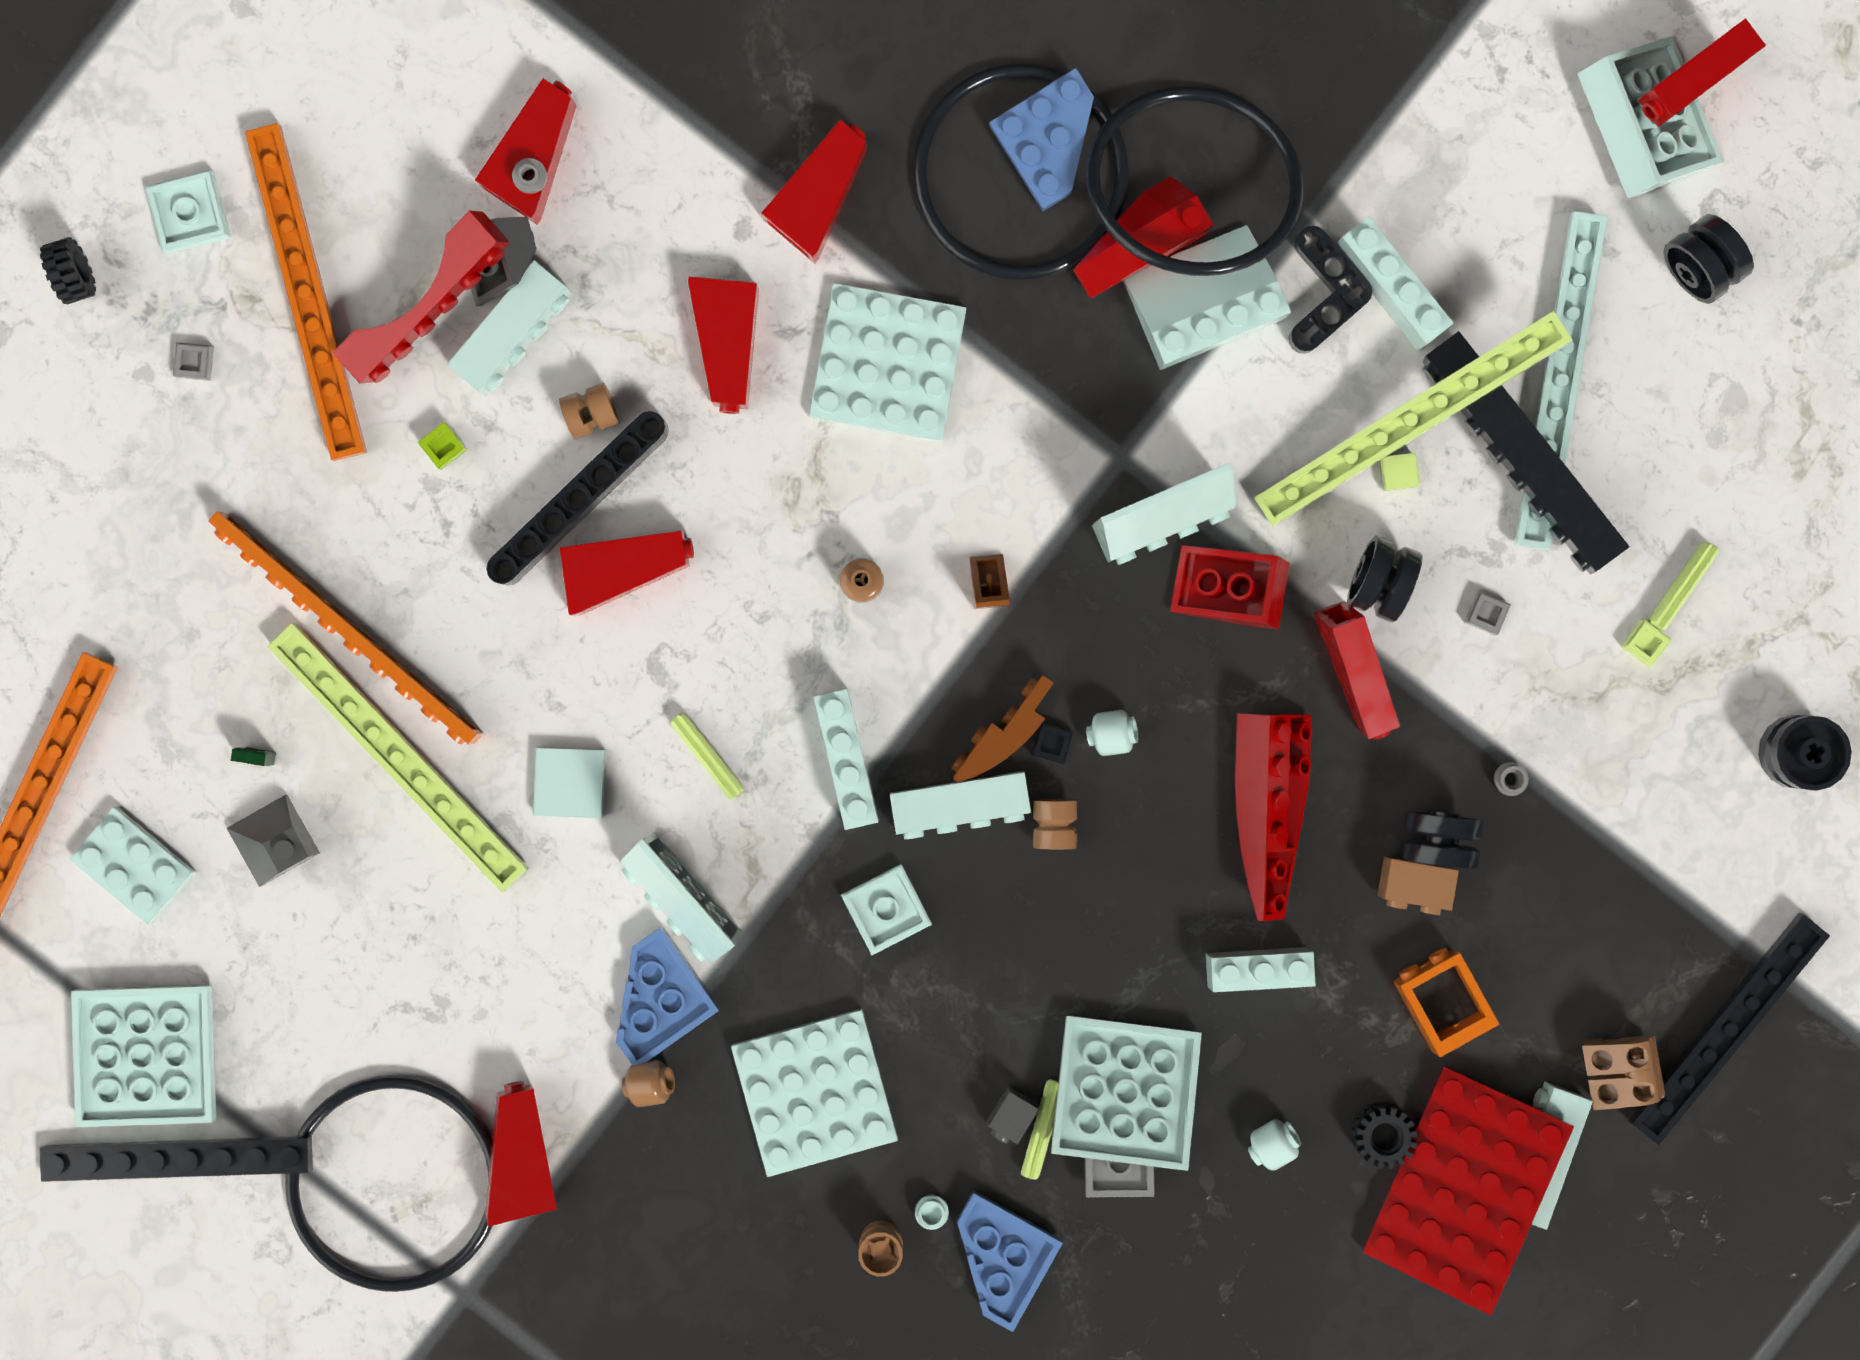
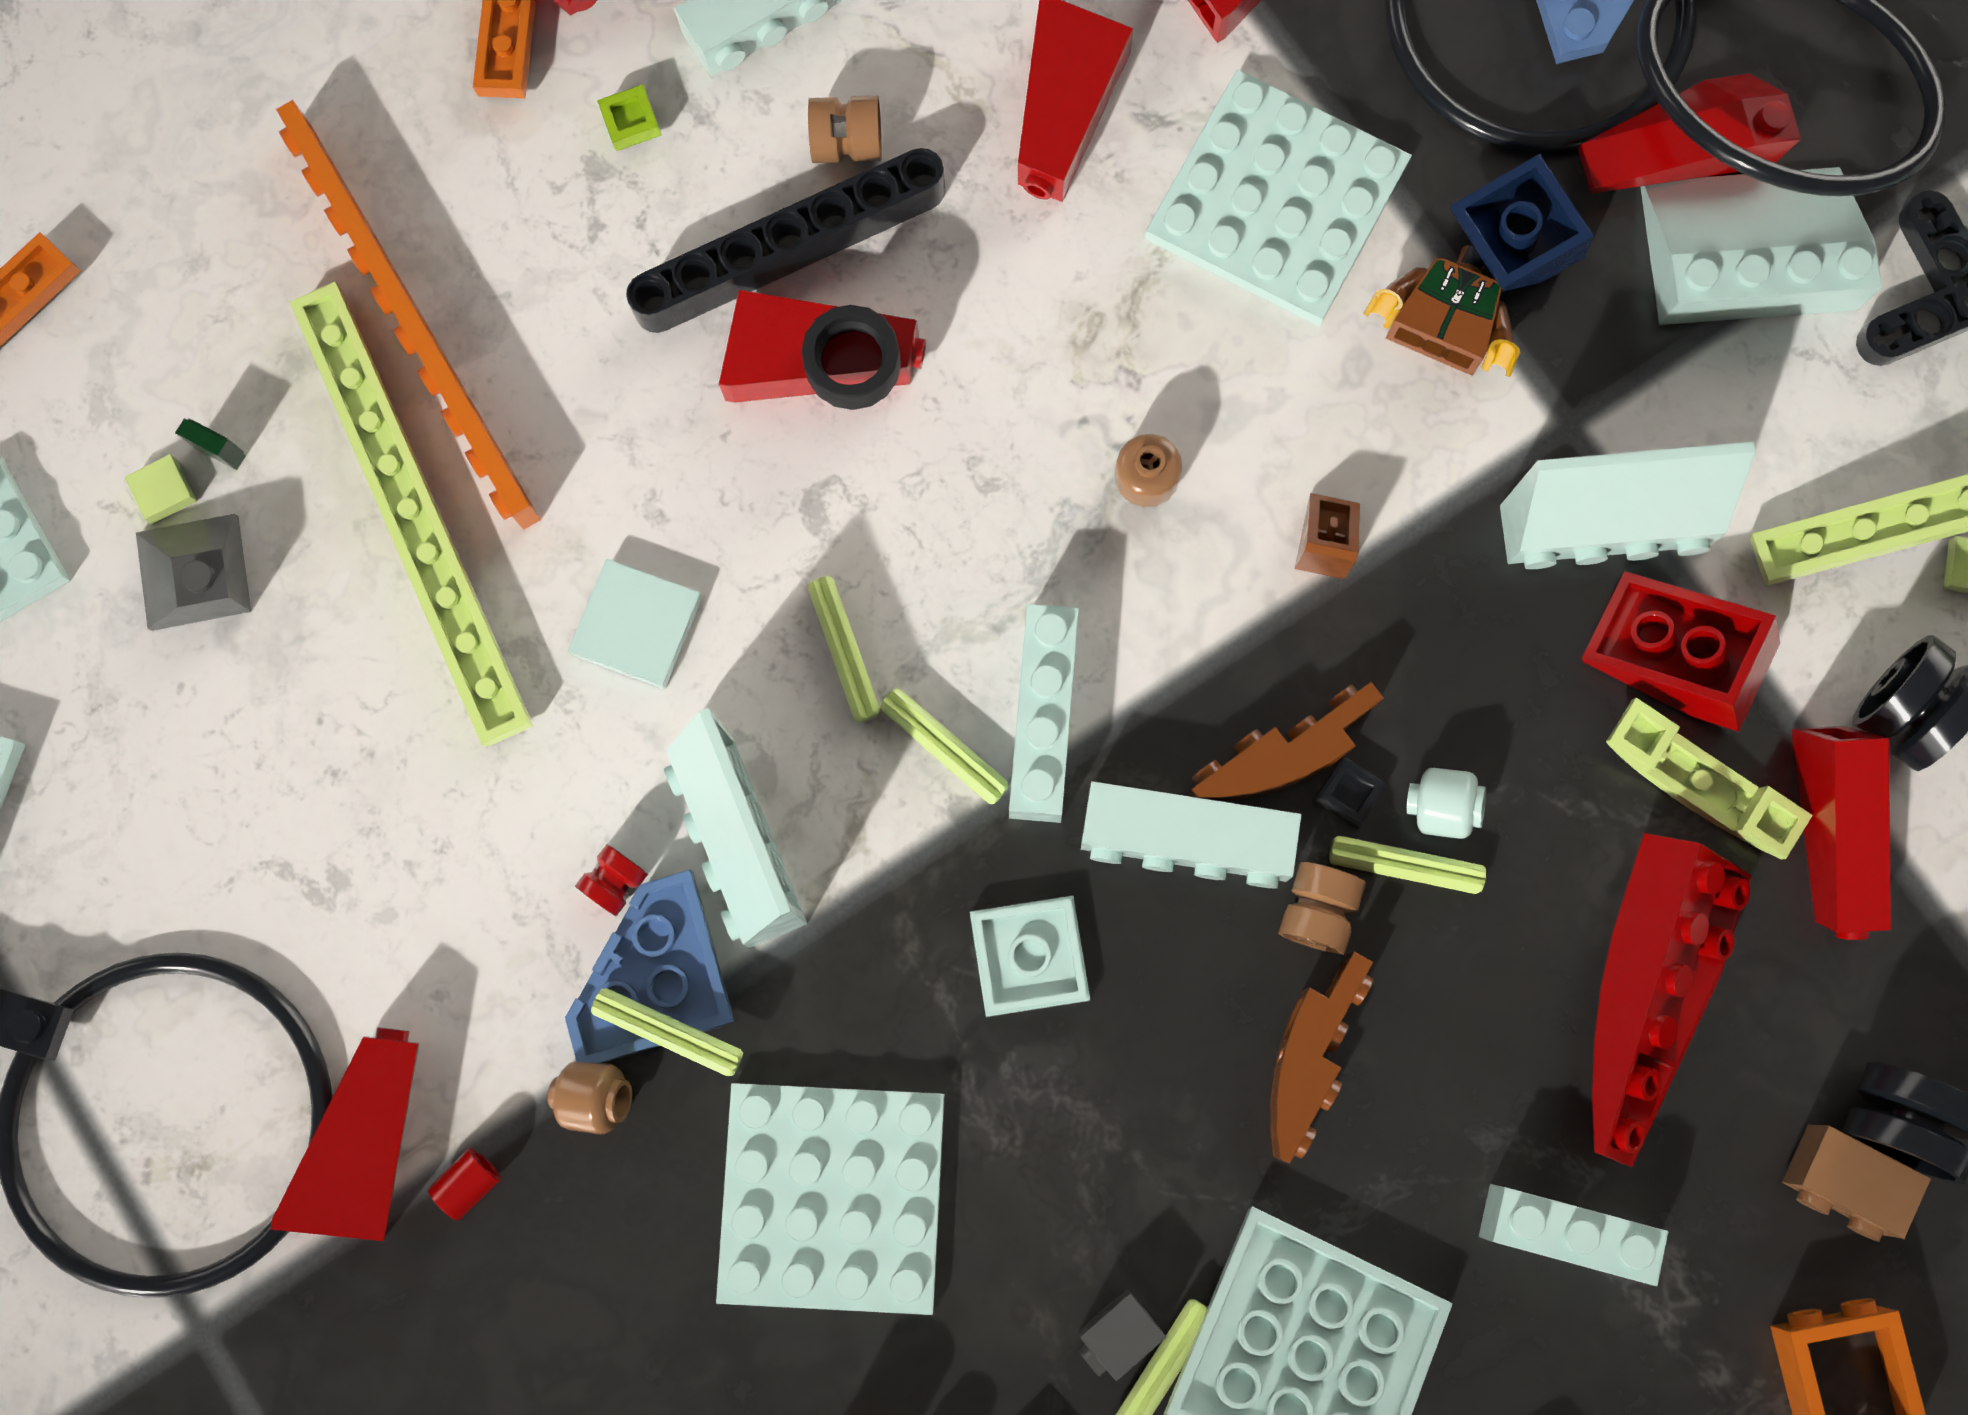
camera: 20 degrees right, 10 degrees down
(231, 794) = (160, 489): none -> yellowish green tile
(591, 1159) = (464, 1184): none -> red piece
(612, 953) = (610, 881): none -> red wheel
(623, 567) = (843, 320): none -> black tyre
(681, 1031) = (667, 1032): none -> yellowish green axle
(791, 797) = (944, 746): none -> yellowish green axle
(1022, 411) = (1449, 314): none -> torso
(1050, 342) = (1524, 226): none -> dark blue slope
(1073, 927) = (1301, 1075): none -> dark orange slope
(1100, 777) = (1407, 864): none -> yellowish green axle
(1267, 666) = (1704, 783): none -> yellowish green slope

